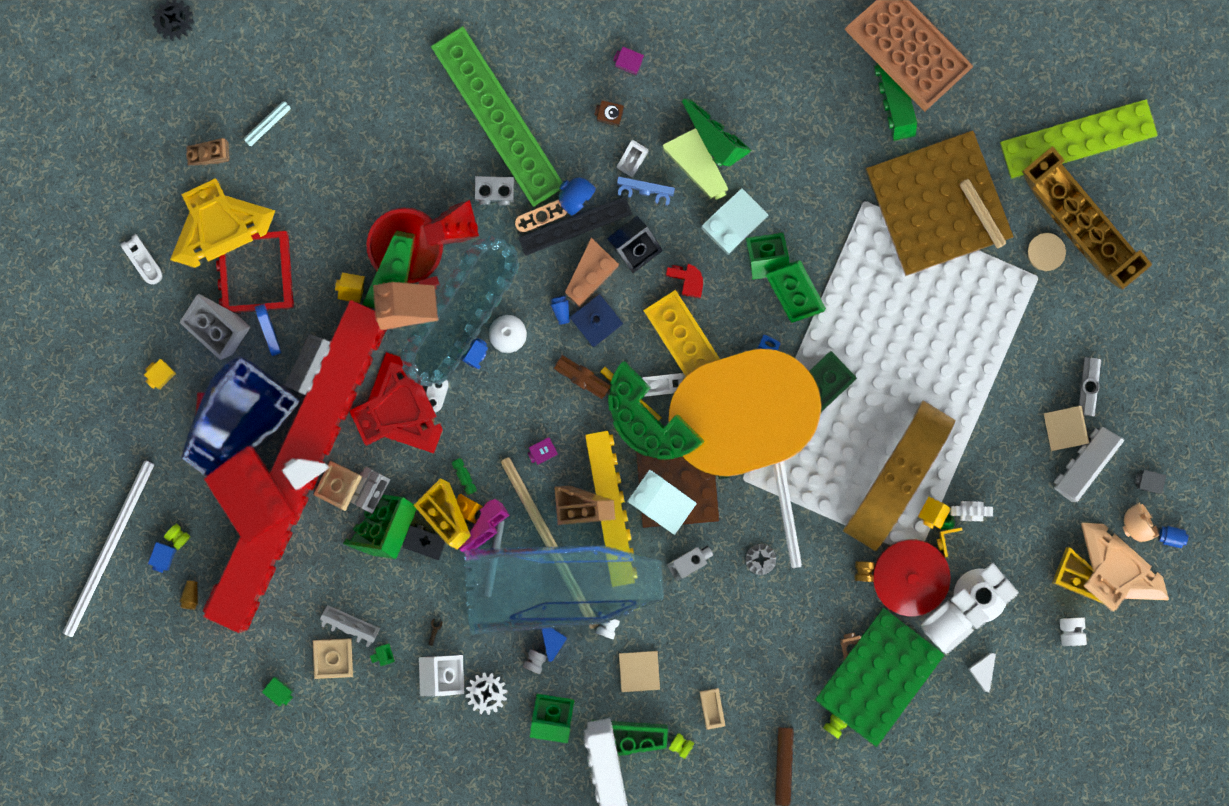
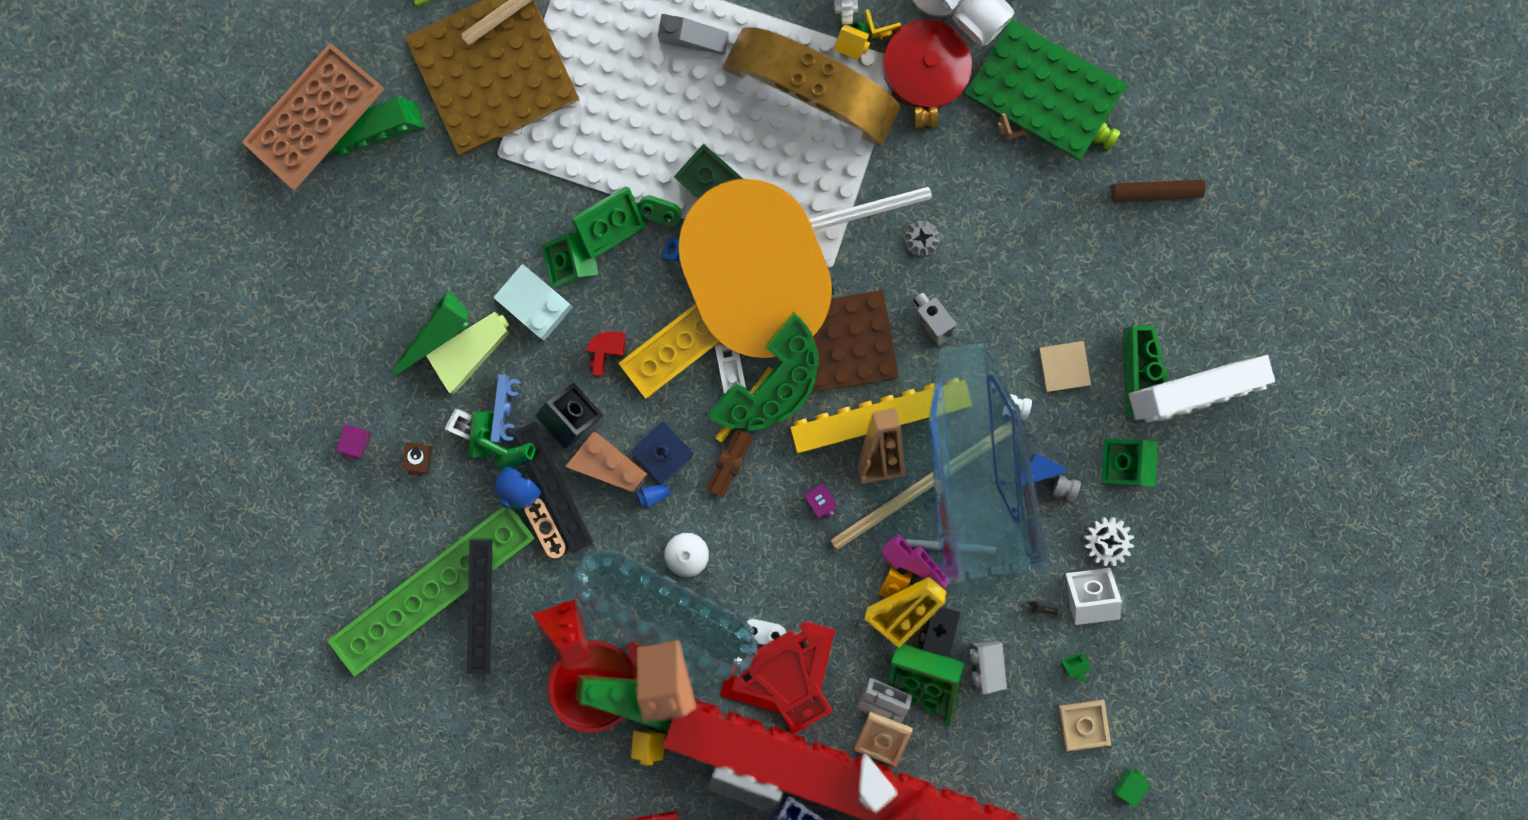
camera: 90 degrees left, 0 degrees up
(349, 624) = (1044, 709): light grey plate -> none
(390, 581) = (989, 667): none -> light grey slope
(464, 476) = (858, 590): green axle -> none
(475, 353) = (713, 590): blue brick -> none
(480, 156) = (479, 606): none -> black plate
(494, 184) = (512, 586): light grey brick -> none
(603, 190) = (508, 457): none -> green piece
(625, 168) = (480, 427): none -> green plate
(662, 502) = (868, 357): light aqua slope -> none
(676, 745) = (1146, 310): lime wheel -> none
(712, 708) = (1099, 278): tan tile -> none
(803, 336) = (659, 210): none -> green plate
(952, 377) = (691, 34): none -> slope

